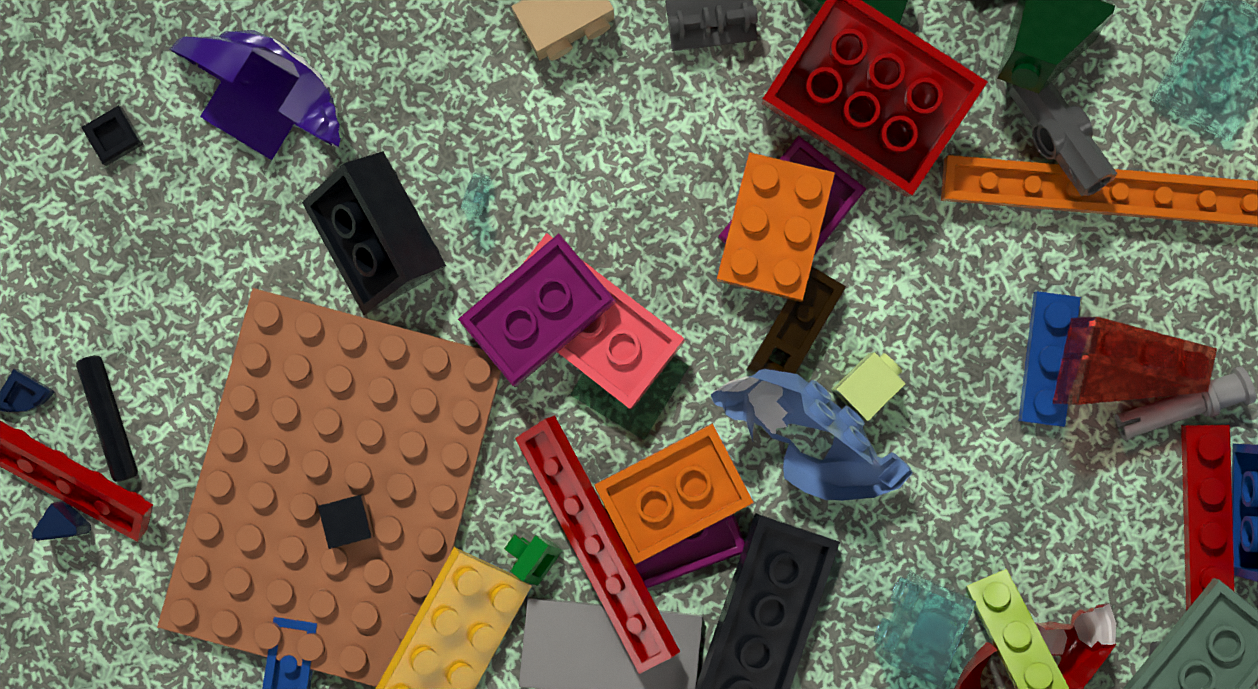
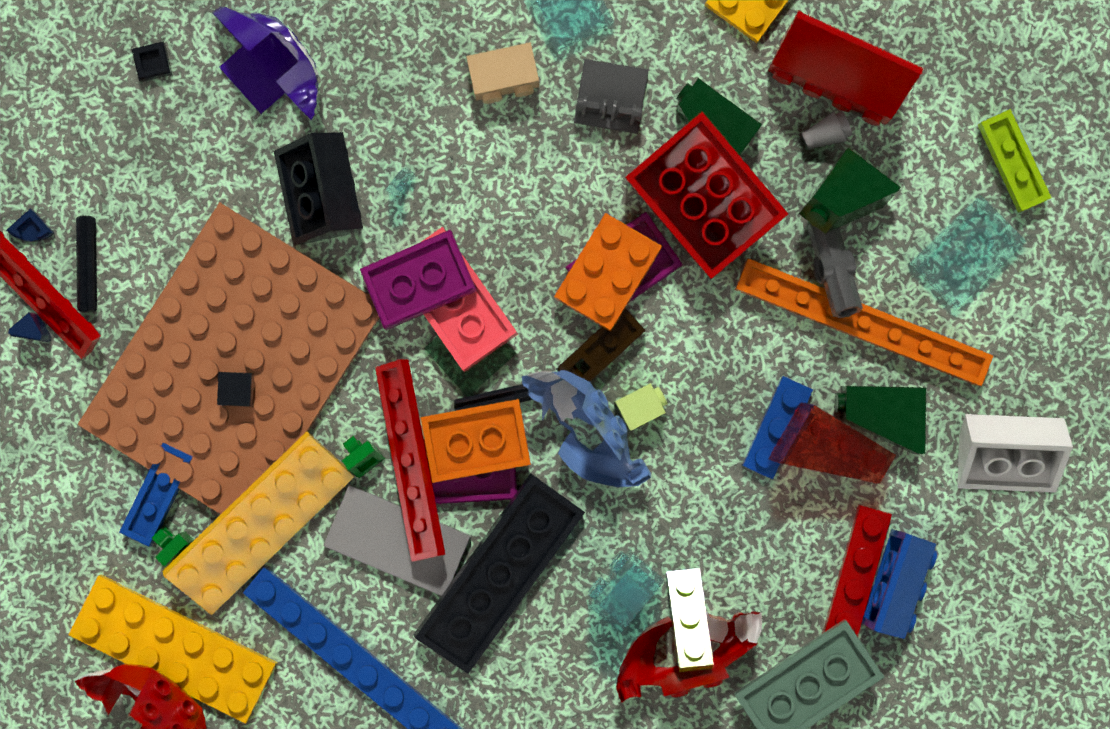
camera: 10 degrees right, 0 degrees up
(676, 431) = (506, 394): none -> black axle
(1186, 299) = (887, 413): none -> dark green slope
(1221, 394) = (888, 490): light grey pin -> none

